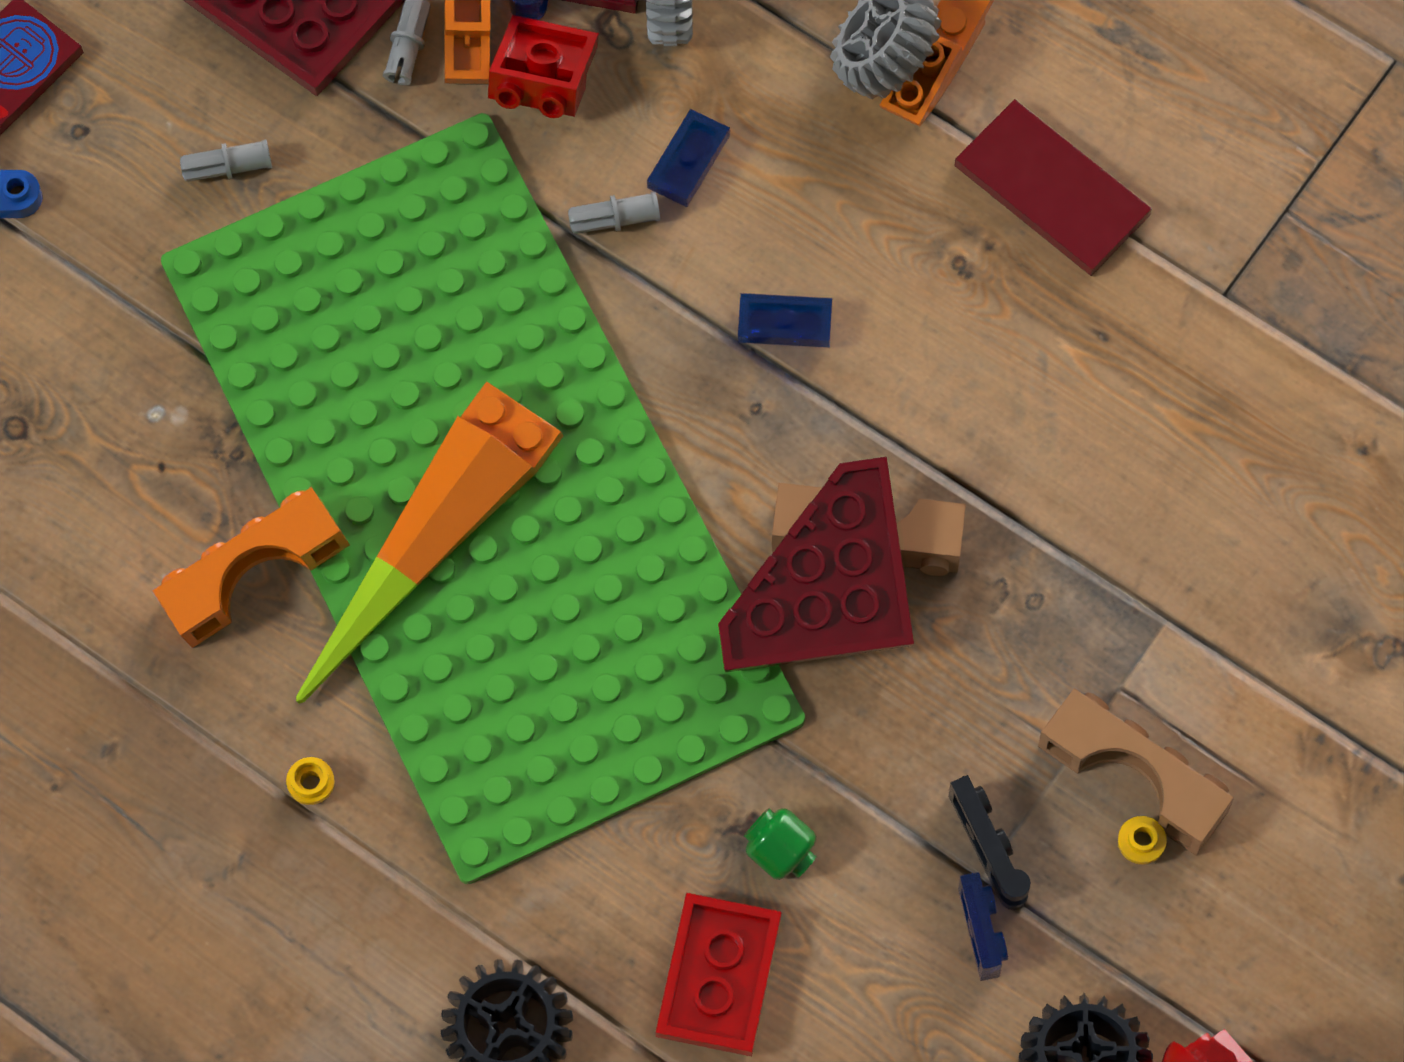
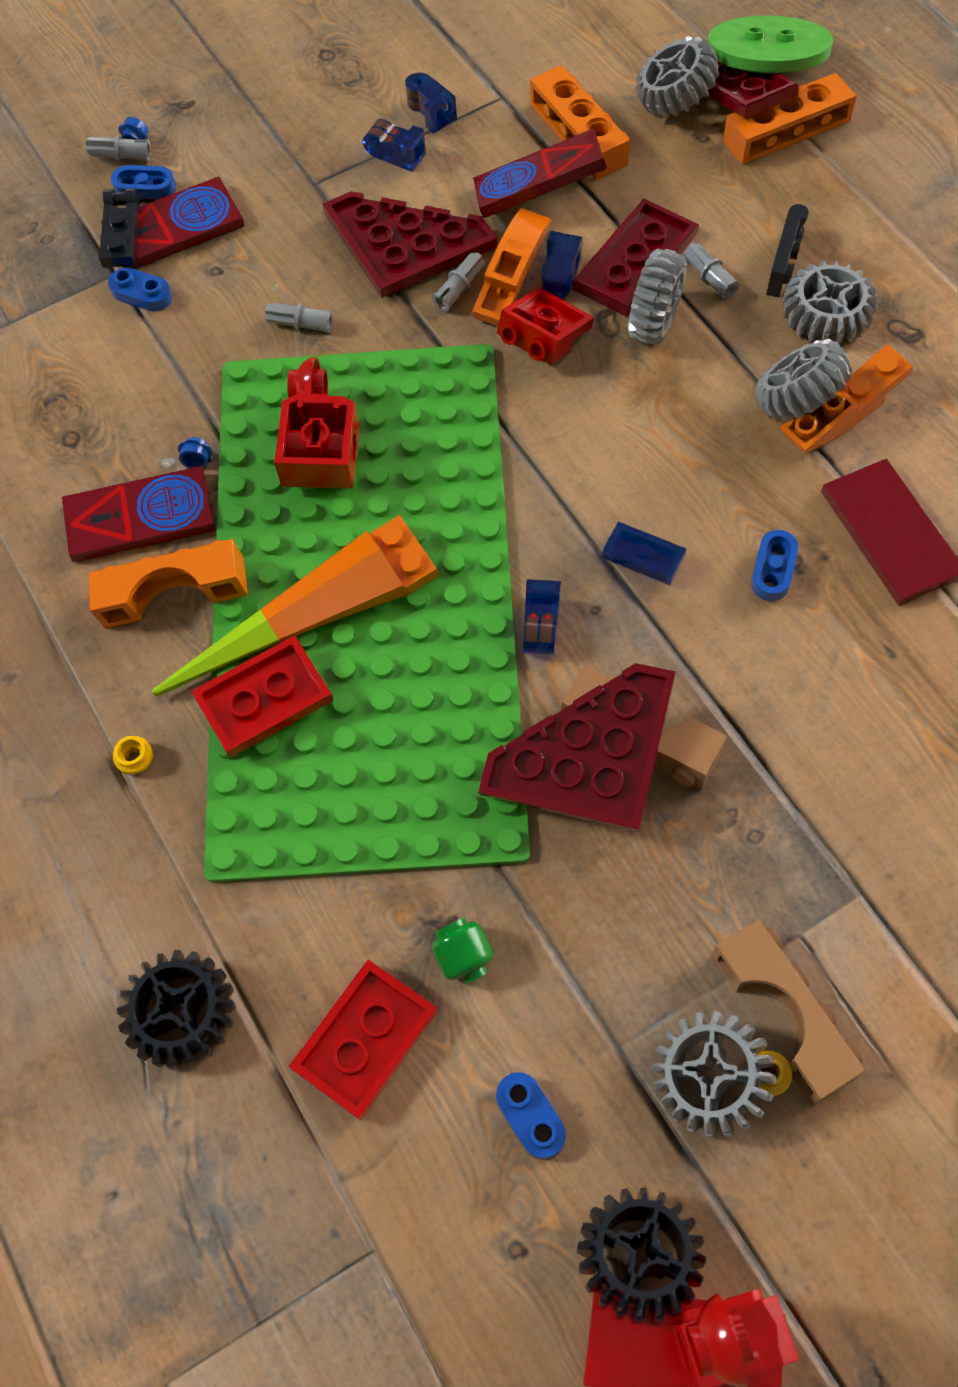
camera: 25 degrees right, 5 degrees down
(158, 493) = (137, 514): none -> dark red tile
(190, 391) = (194, 452): none -> blue plate
(340, 314) = (316, 432): none -> red brick
(431, 656) = (262, 696): none -> red plate
(614, 213) = (551, 438): light grey axle -> none
(688, 158) = (621, 418): clear blue plate -> none
(701, 442) = (541, 616): none -> clear blue leg
(919, 980) = (529, 1115): none -> blue plate
(938, 283) = (774, 567): none -> blue plate
(978, 905) = (598, 1111): clear blue plate -> none
(989, 844) = (636, 1024): black plate -> none
(1110, 855) = (713, 1095): none -> light grey gear

